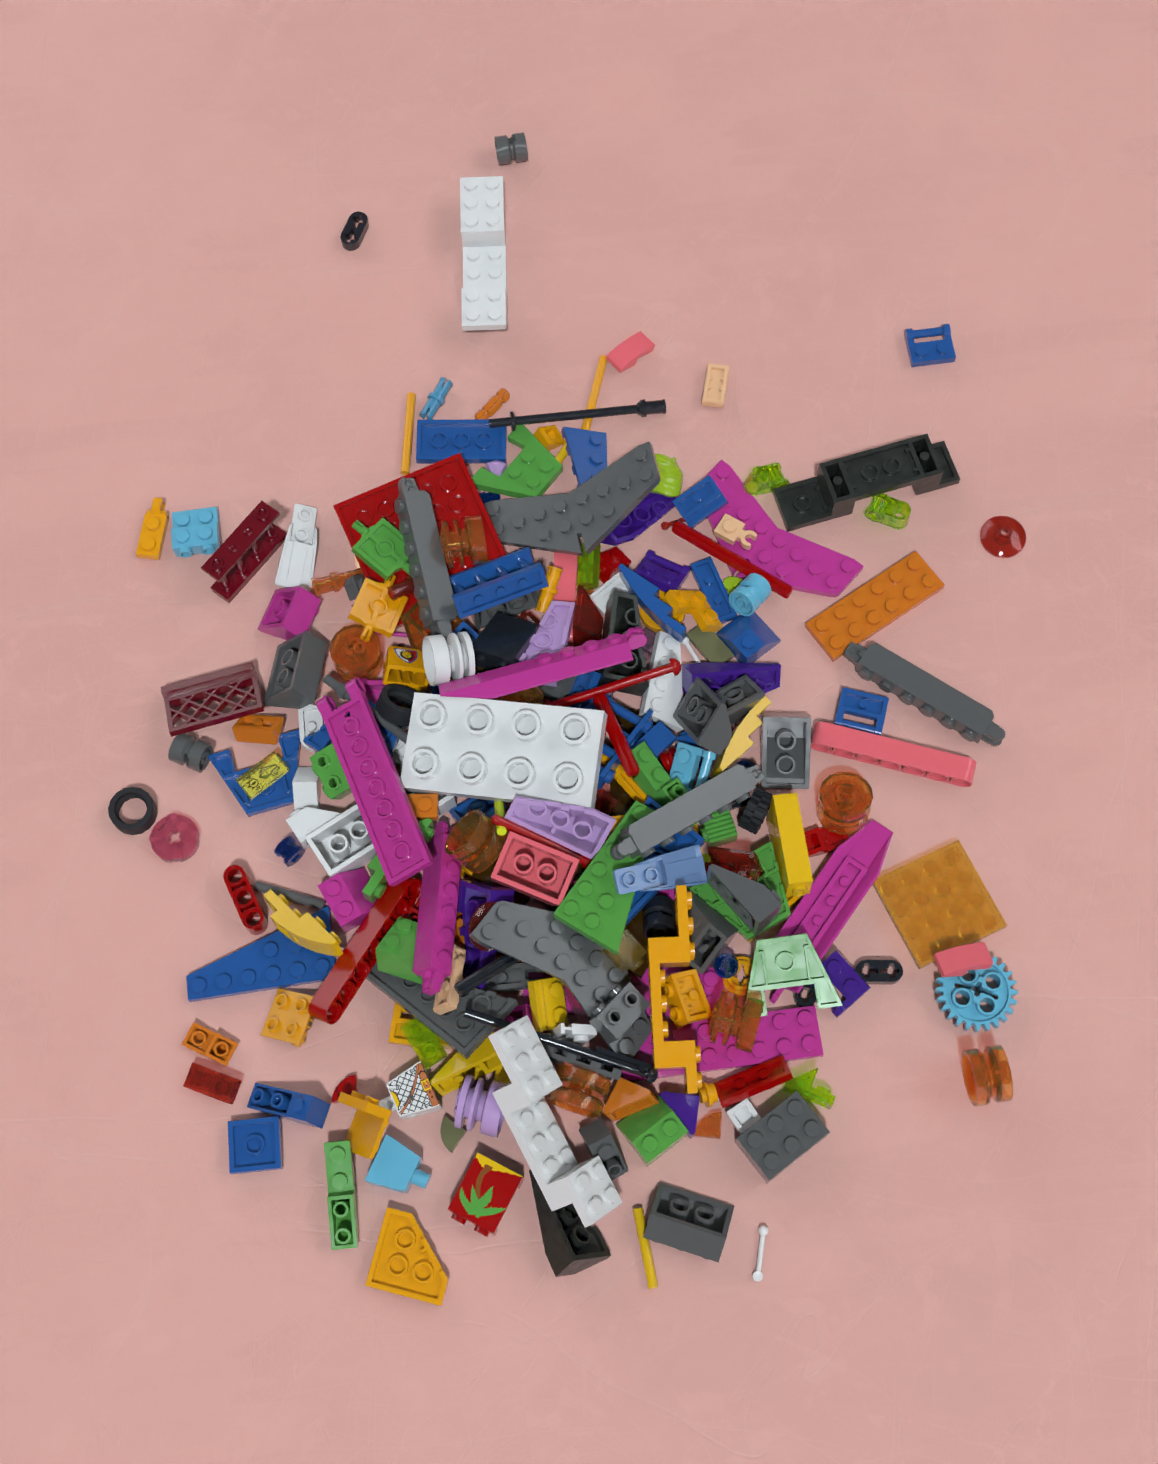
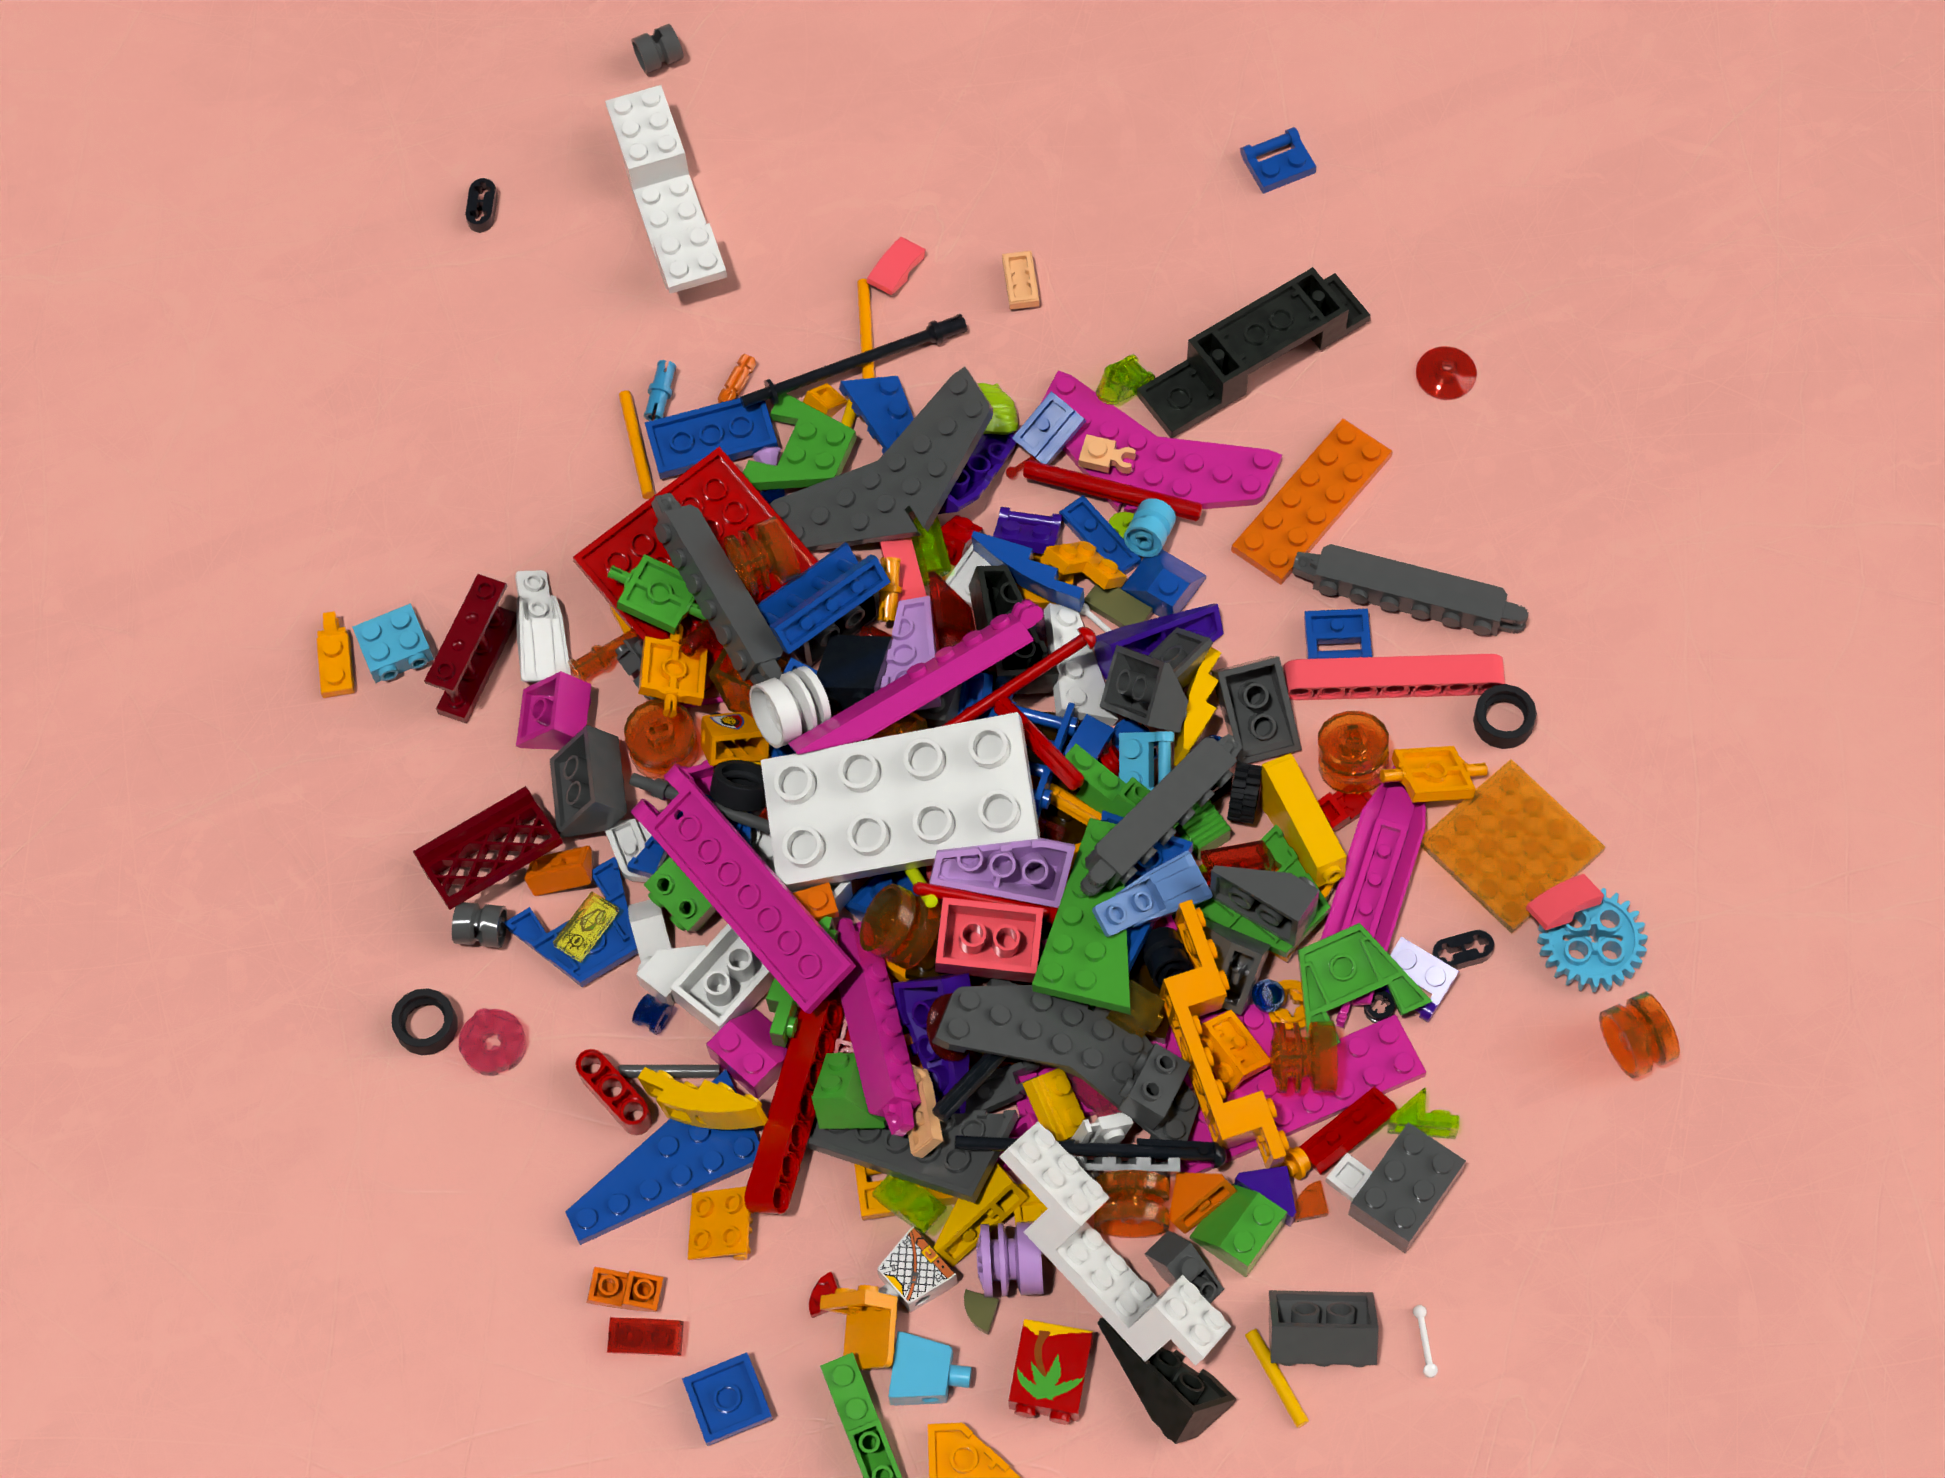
camera: 15 degrees left, 5 degrees down
(289, 1105) = (759, 1334): blue slope -> none
(886, 511) = (1292, 377): clear neon green piece -> none
(898, 835) = (1433, 773): none -> light orange plate
(972, 790) = (1508, 694): none -> black tyre

